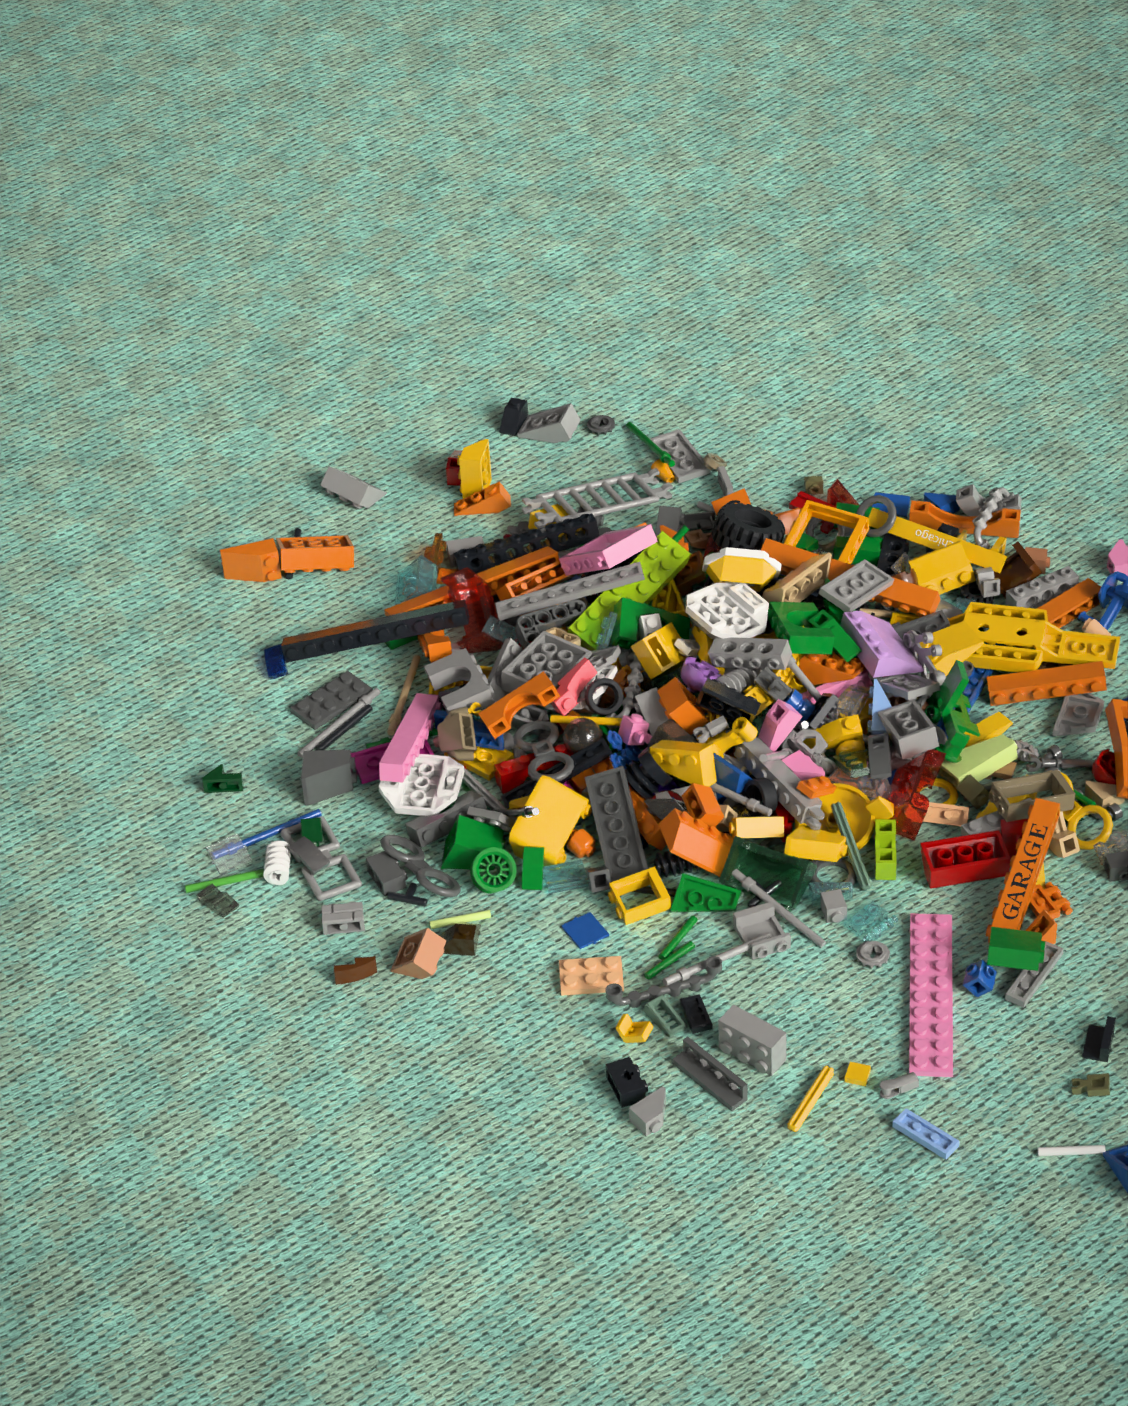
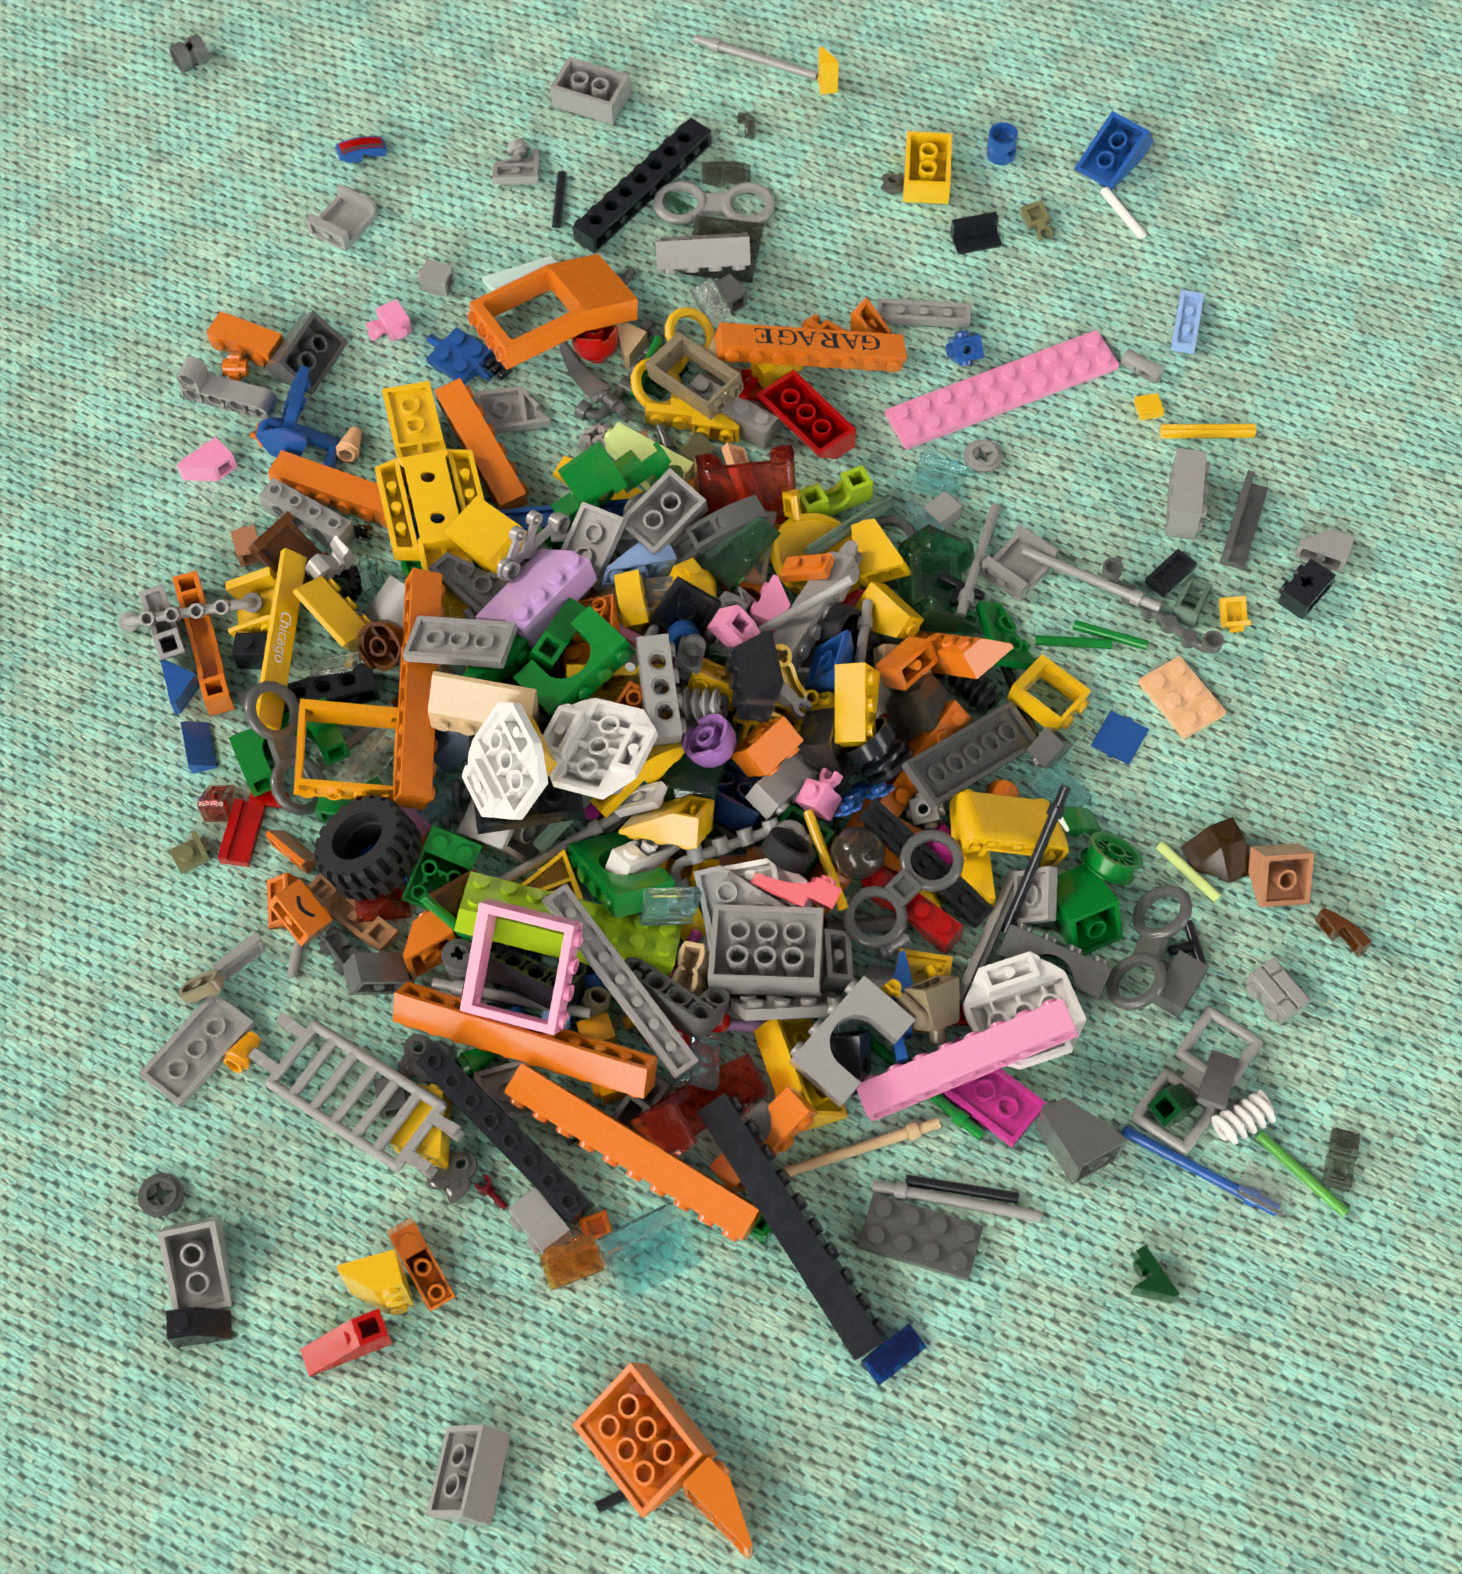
camera: 120 degrees left, 20 degrees up
(533, 692) = (839, 911): orange arch -> none
(662, 455) = (229, 1046): green bar -> none
(846, 685) = (631, 598): none -> yellow slope
(1015, 949) = (922, 319): green brick -> none

